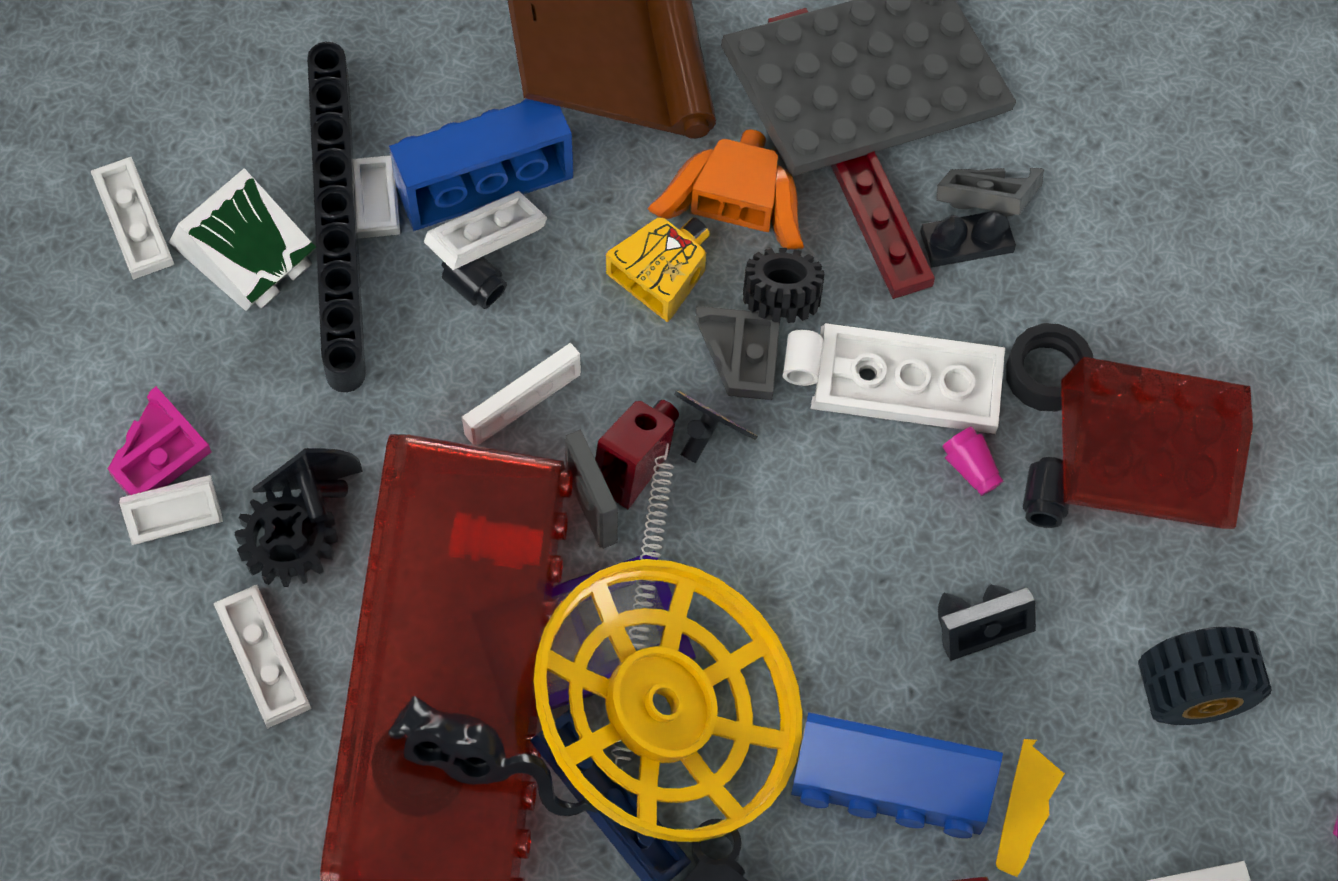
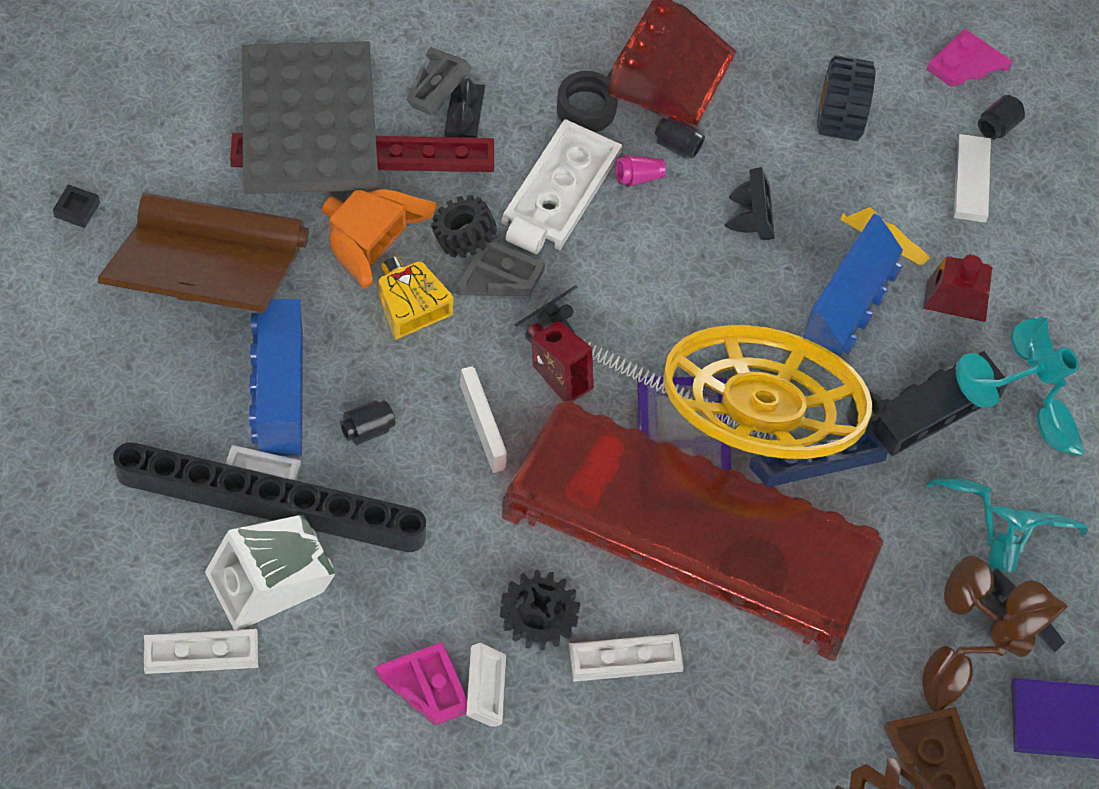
camera: 75 degrees left, 5 degrees down
(316, 475) = (509, 569): black shield -> none
(471, 752) = (776, 513): black animal -> none
(485, 230) = (337, 396): white tile -> none
(591, 490) = (591, 389): dark grey tile -> none

